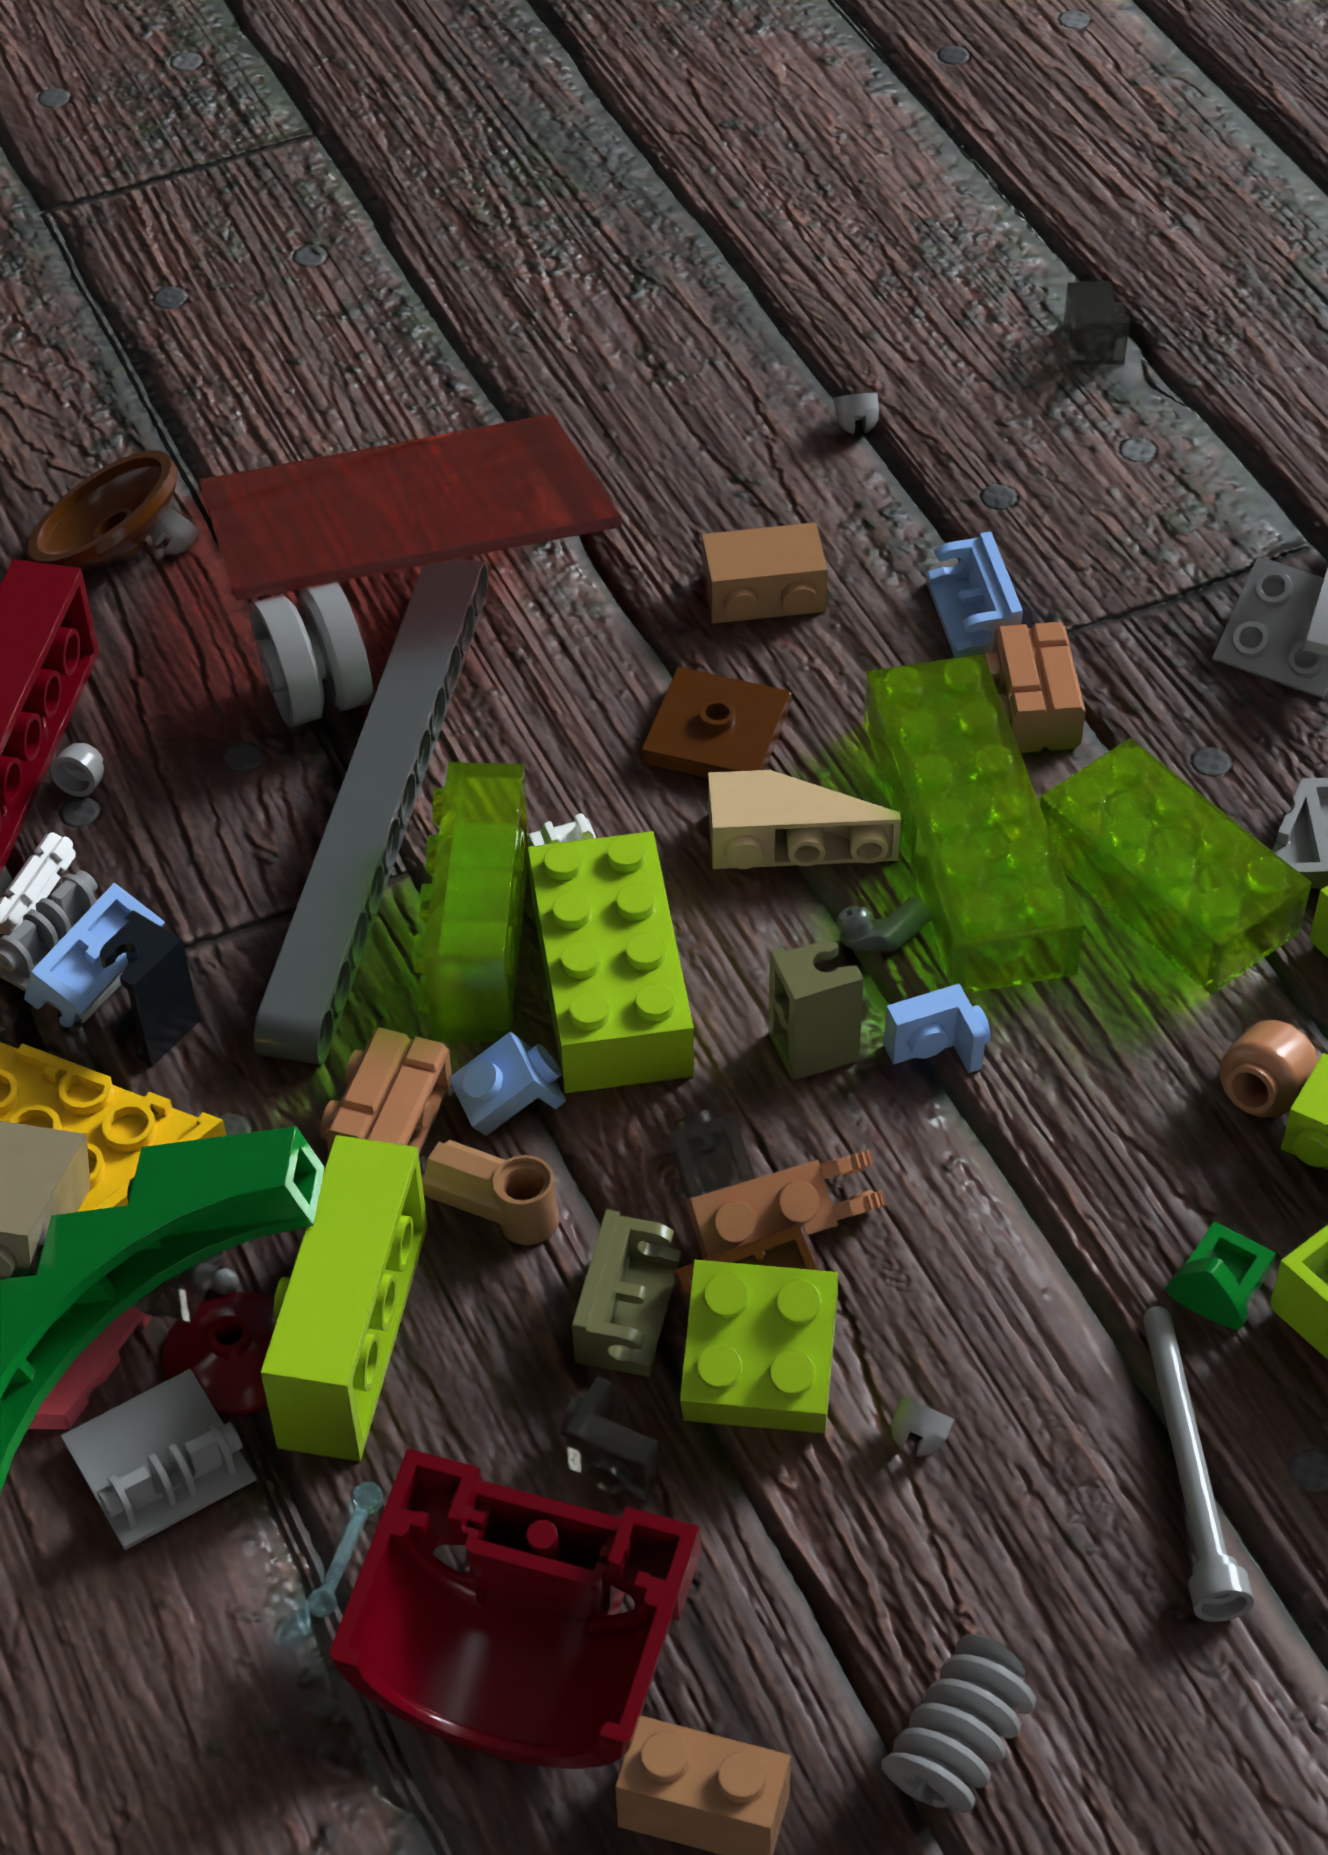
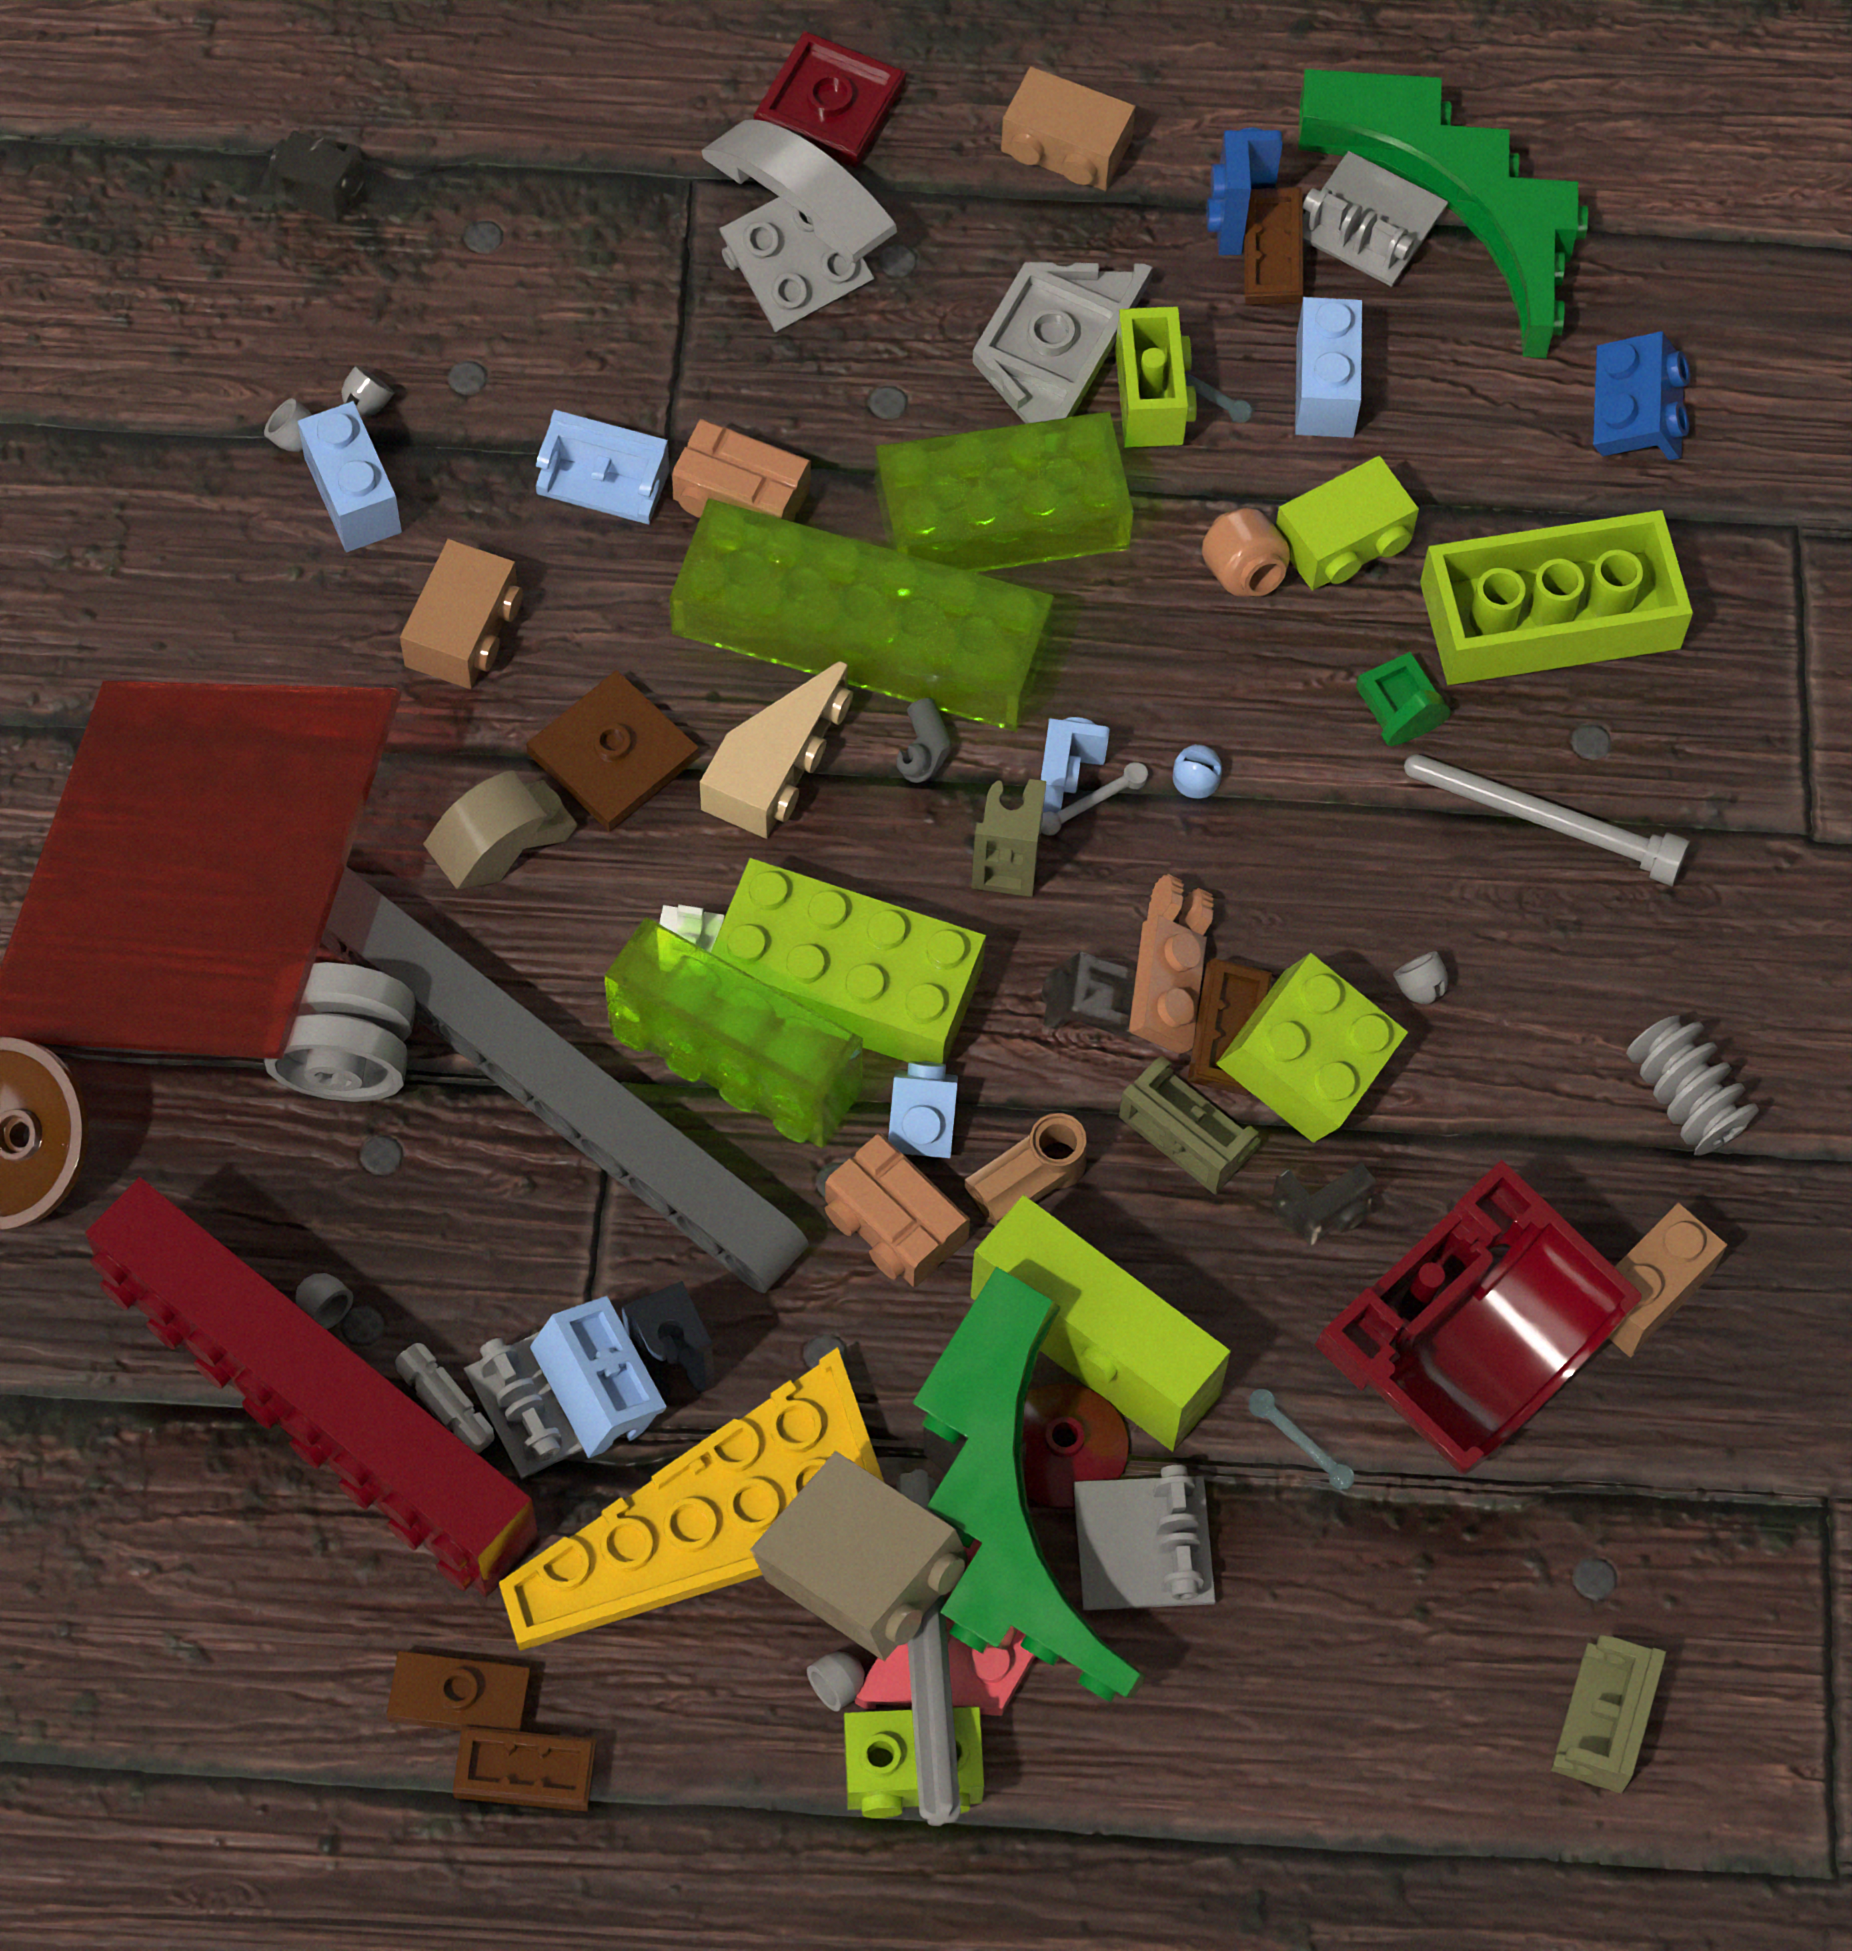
camera: 65 degrees left, 15 degrees up
(580, 666) = (493, 825): none -> dark tan brick
(834, 454) = (349, 476): none -> light blue brick
(926, 437) = (368, 389): none -> light grey hinge
(972, 1099) = (1134, 777): none -> light grey hinge
(1000, 1146) = (1194, 778): none -> light blue hinge

